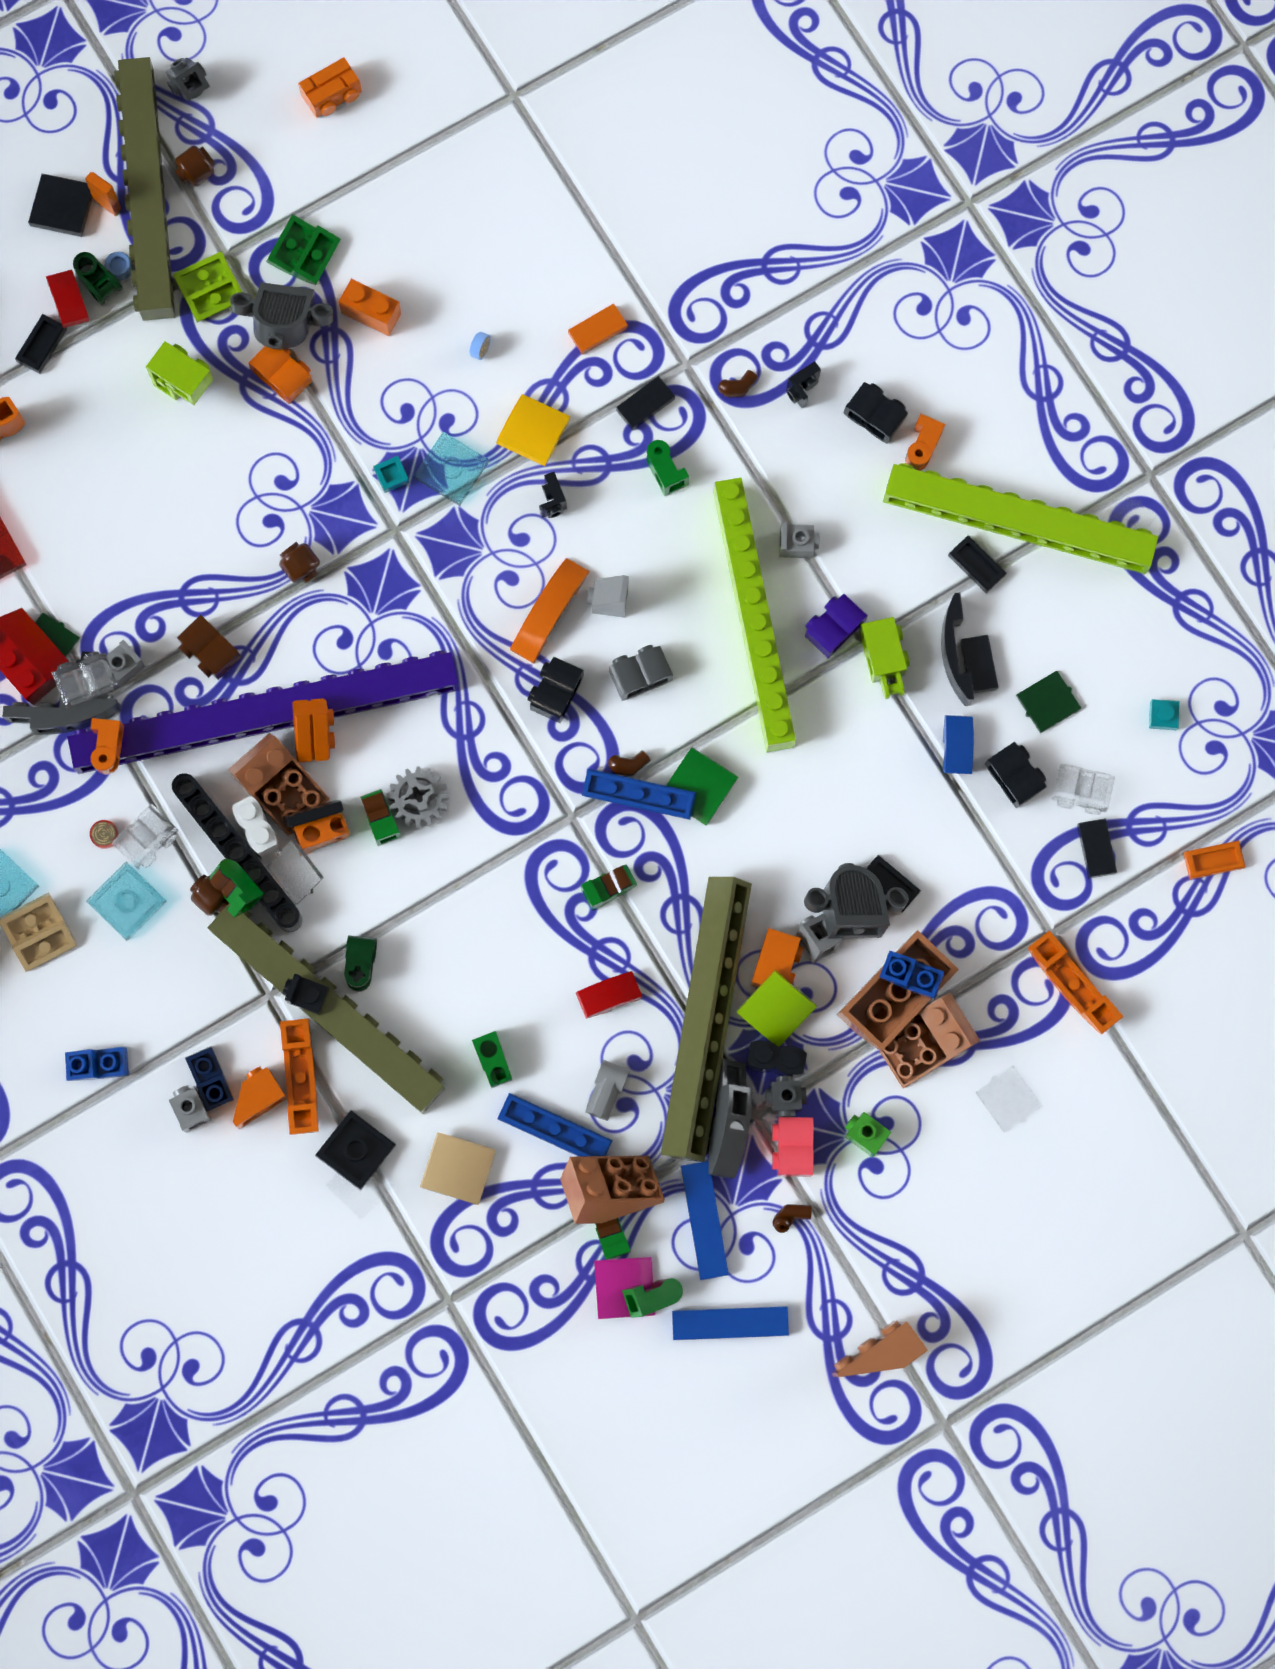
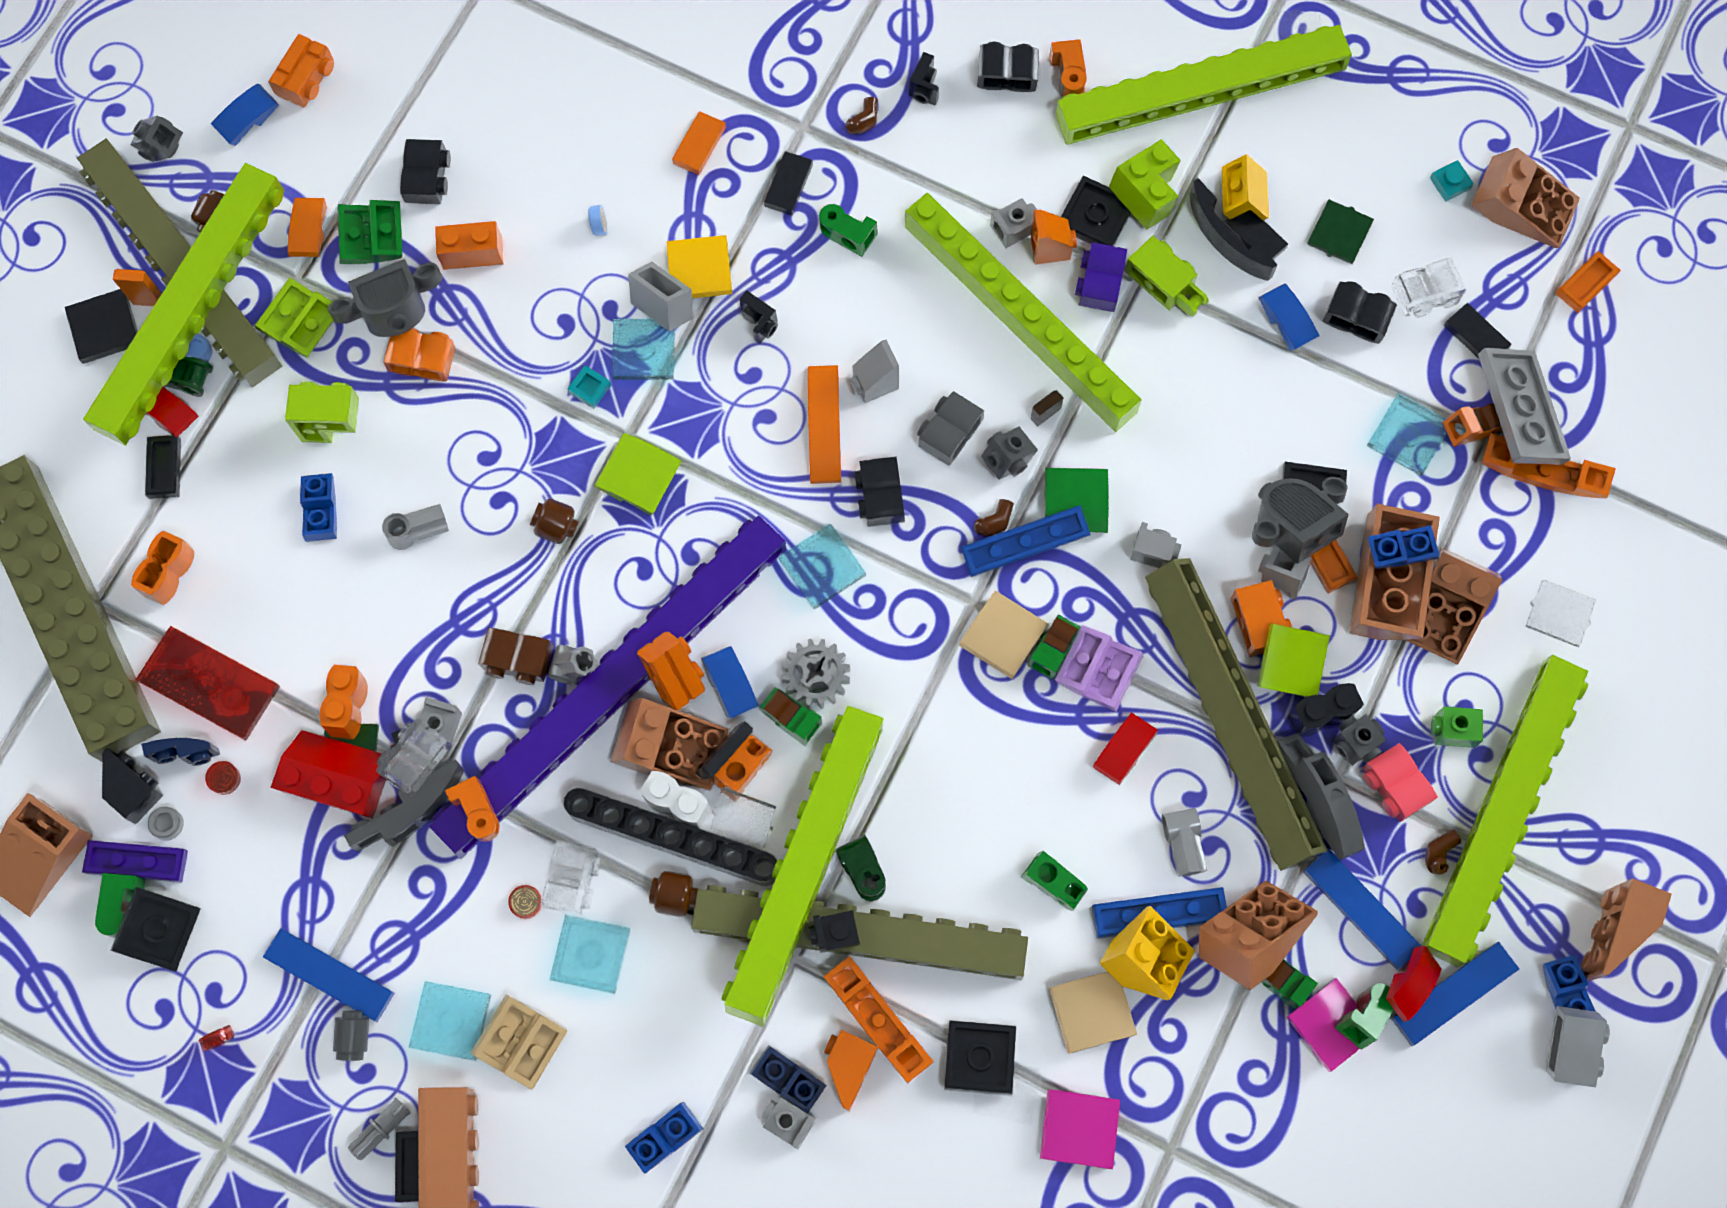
camera: 25 degrees left, 5 degrees down
(68, 601) = (341, 707): none -> orange brick
(129, 228) = (184, 305): none -> lime brick
(136, 445) = (319, 507): none -> blue slope
(198, 505) = (418, 526): none -> light grey piece
(235, 887) = (695, 869): green leg -> none
(243, 679) = (571, 663): none -> light grey piece
(257, 217) = (305, 227): none -> orange slope
(266, 96) = (243, 113): none -> blue slope
(316, 932) = (803, 868): none -> lime brick
(351, 764) = (730, 682): none -> blue slope
(373, 226) = (424, 171): none -> black brick
(385, 563) = (637, 473): none -> lime slope
(392, 1245) = (1080, 1129): none -> dark pink slope
(477, 719) = (822, 566): none -> clear light blue tile
(486, 436) = (660, 296): none -> light grey brick
(523, 1154) = (1148, 956): none -> yellow slope
(576, 854) = (1003, 634): none -> tan slope
(631, 923) = (1099, 668): none -> lavender slope
(670, 719) = (1004, 457): none -> dark grey brick
(702, 1297) = (1413, 987): none -> red slope
(723, 701) = (1046, 407): none -> dark brown tile
(733, 859) = (1154, 547): none -> light grey brick
(788, 1415) = (1577, 1046): none -> light grey brick
(814, 1377) = (1567, 983): none -> blue slope
(815, 571) = (1051, 238): none -> orange slope
(859, 957) = (1333, 567): none -> orange tile
(859, 1215) = (1505, 810): none -> lime brick
(867, 572) = (1096, 213): none -> black tile
(915, 568) = (1143, 183): none -> lime brick
(977, 564) = (1194, 147): black tile -> none
(989, 892) = (1408, 434): none -> clear light blue tile
(994, 623) = (1244, 188): none -> yellow panel
(1041, 915) = (1476, 421): none -> orange leg
(1088, 925) = (1524, 406): none -> light grey plate
(1210, 765) = (1525, 198): none -> nougat slope

